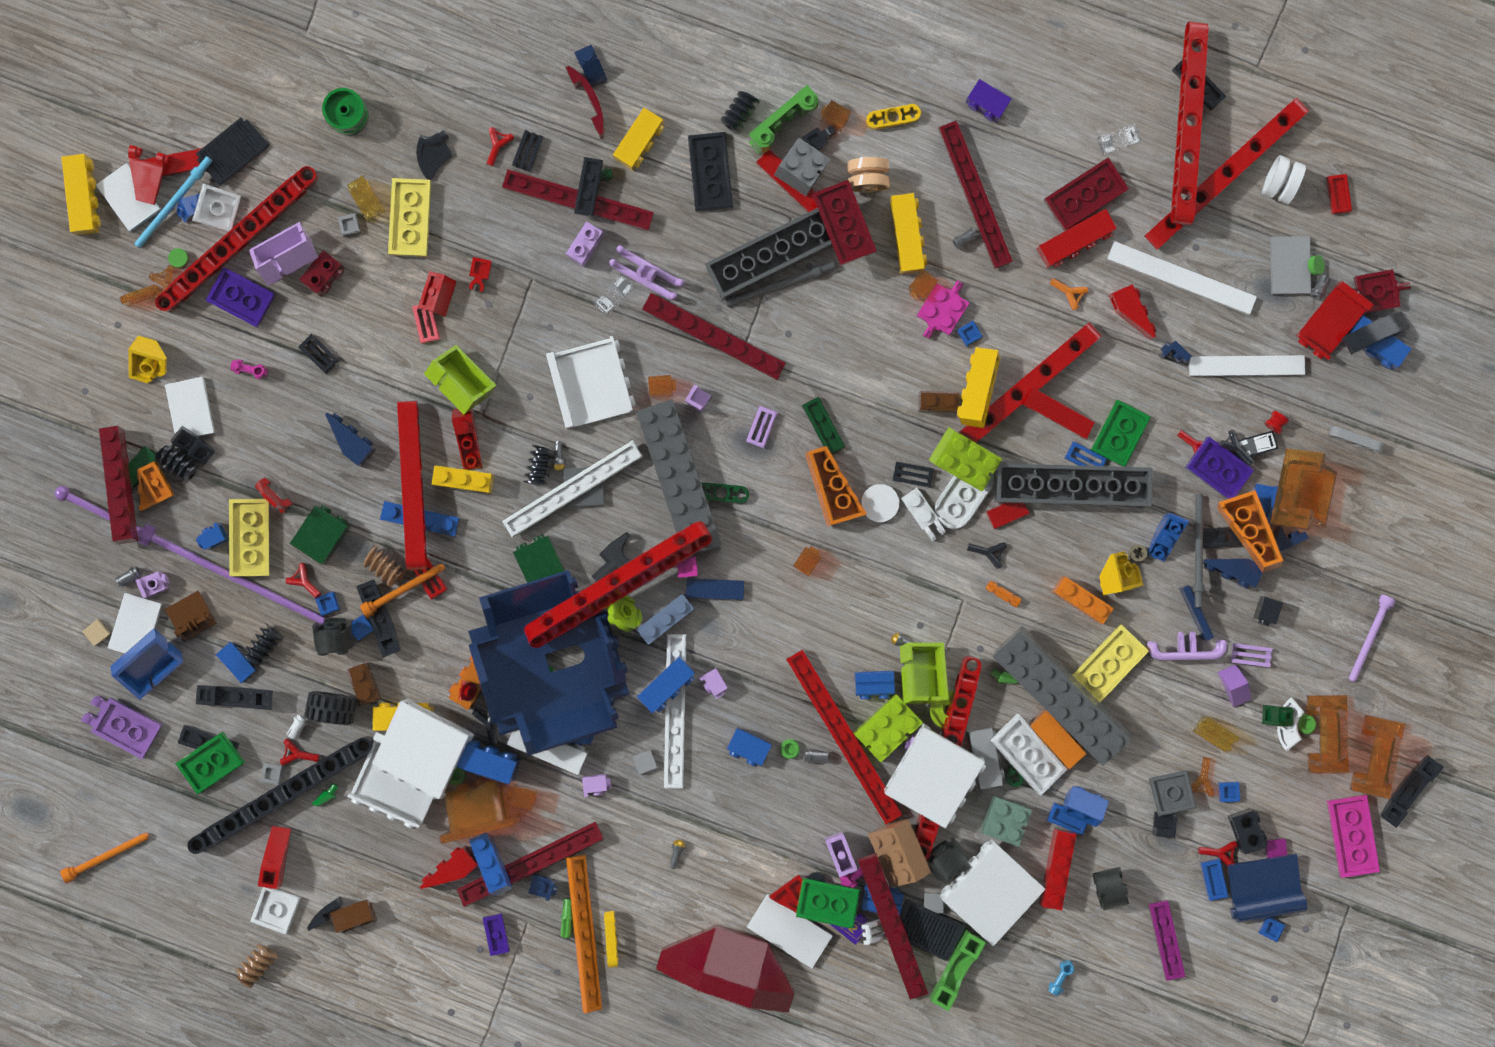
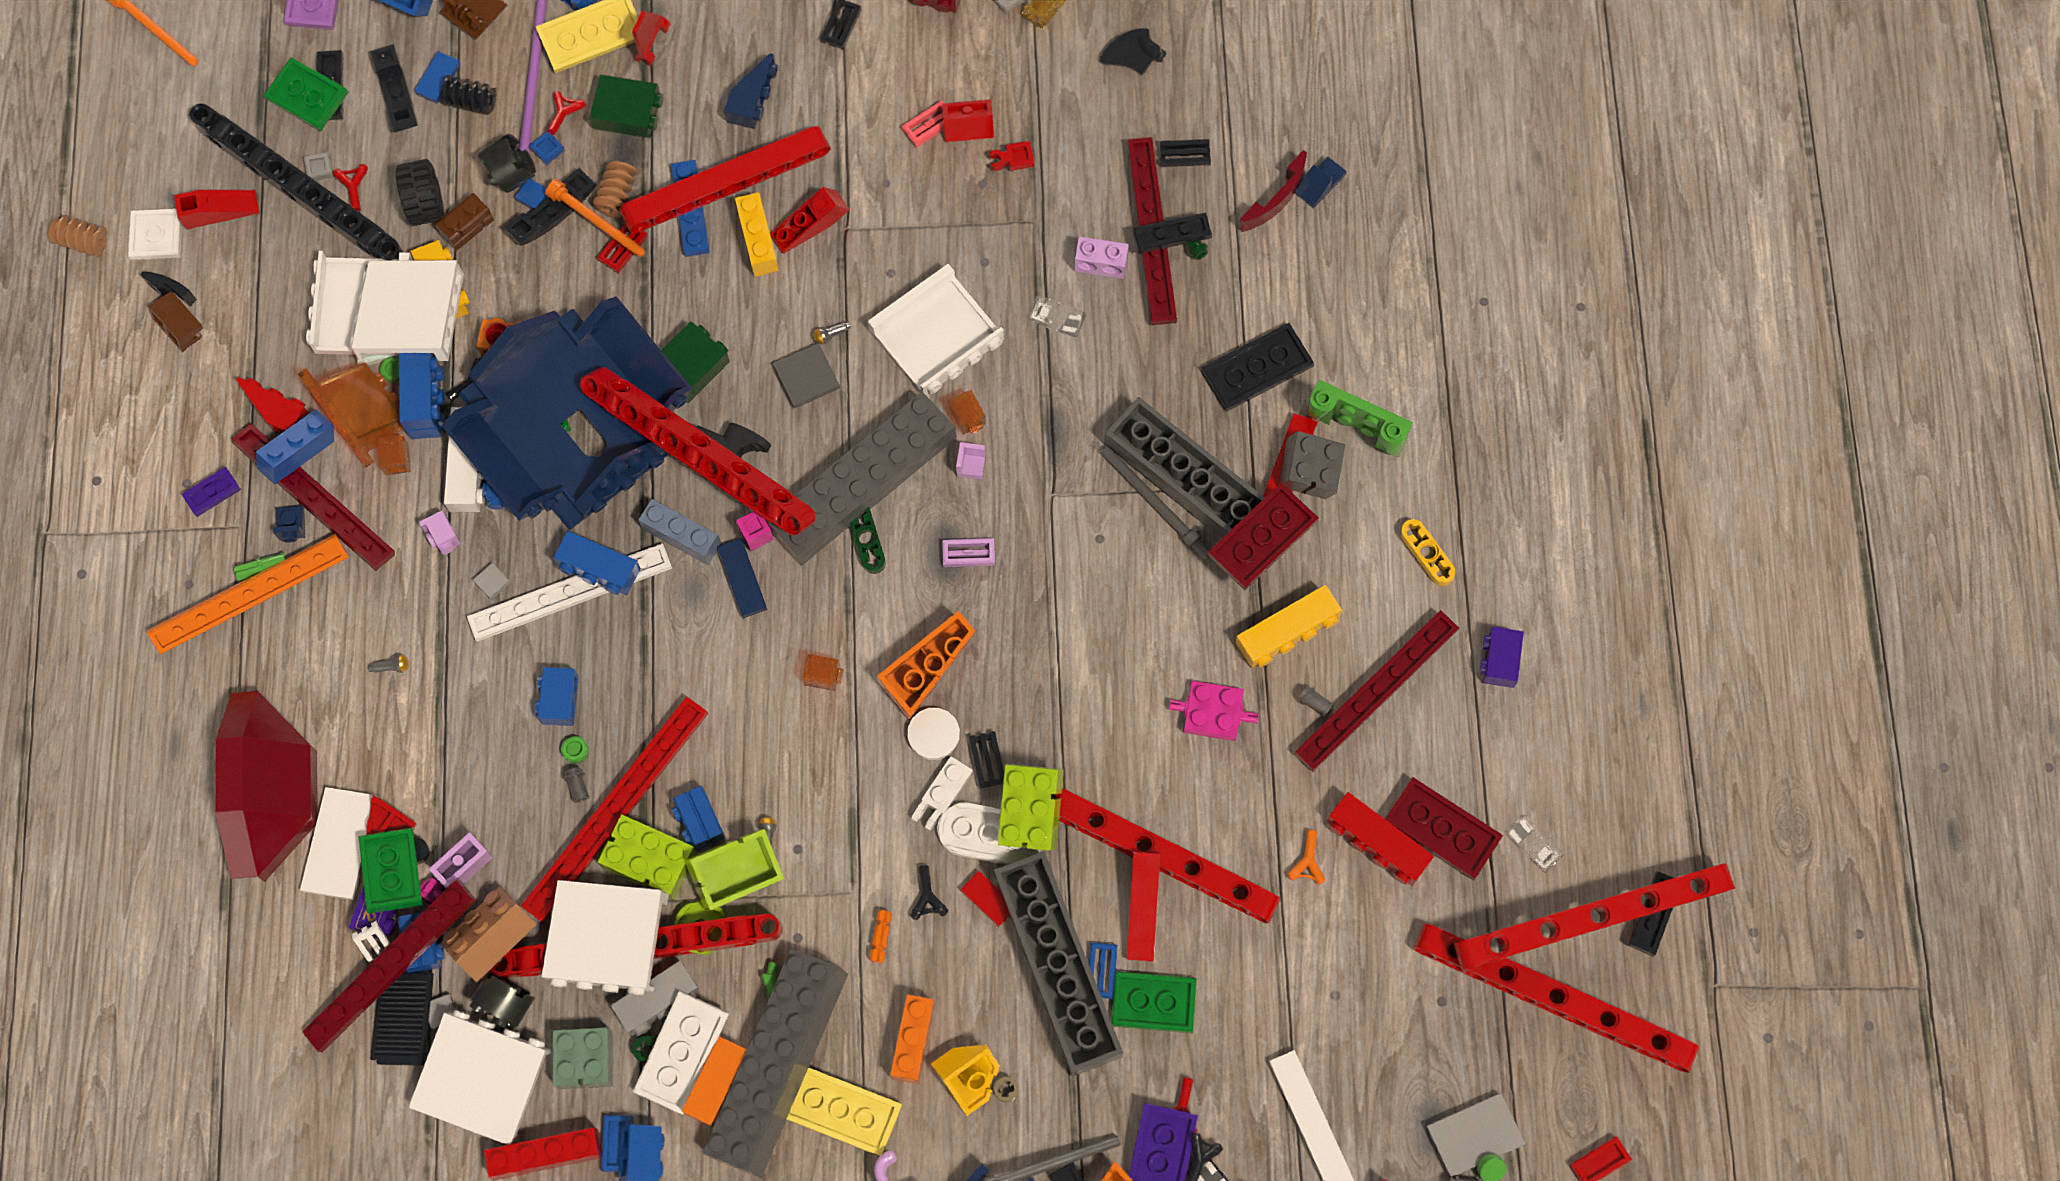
camera: 70 degrees right, 15 degrees down
(297, 726) = (384, 171): white pin -> none
(326, 795) = (314, 236): green bar -> none
(409, 217) = (1045, 56): light yellow plate -> none
(459, 379) = (874, 180): lime piece -> none
(497, 145) = (1177, 117): red piece -> none
(539, 466) = (809, 312): black piece -> none
(572, 489) = (798, 361): white tile -> none
(611, 939) = (252, 628): yellow beam -> none
(624, 614) = (655, 475): lime plate -> none
(639, 139) = (1257, 268): yellow brick -> none
(646, 273) = (1099, 340): lavender piece -> none
(713, 336) = (1056, 452): dark red plate -> none
(714, 683) = (622, 622): lavender brick -> none
(738, 111) = (1346, 367): black piece -> none
(818, 138) = (1356, 471): black plate -> none
(823, 425) = (1002, 626): dark green tile -> none
(835, 115) = (1395, 481): clear orange brick -> none
(869, 174) = (1338, 546): light nougat wheel -> none
(922, 285) = (1231, 671): clear orange brick -> none
(938, 401) = (1093, 750): reddish brown brick -> none
(954, 972) = (360, 1075): bright green arch -> none
(969, 333) = (1198, 757): blue tile -> none
(979, 387) = (1132, 790): yellow brick -> none
(1129, 307) = (1322, 942): red slope -> none
(1166, 536) = (1041, 1114): blue slope -> none
(1178, 352) = (1290, 1032): dark blue bracket -> none
(1181, 278) = (1392, 999): white tile -> none
(1283, 179) = (1581, 1078): white wheel -> none

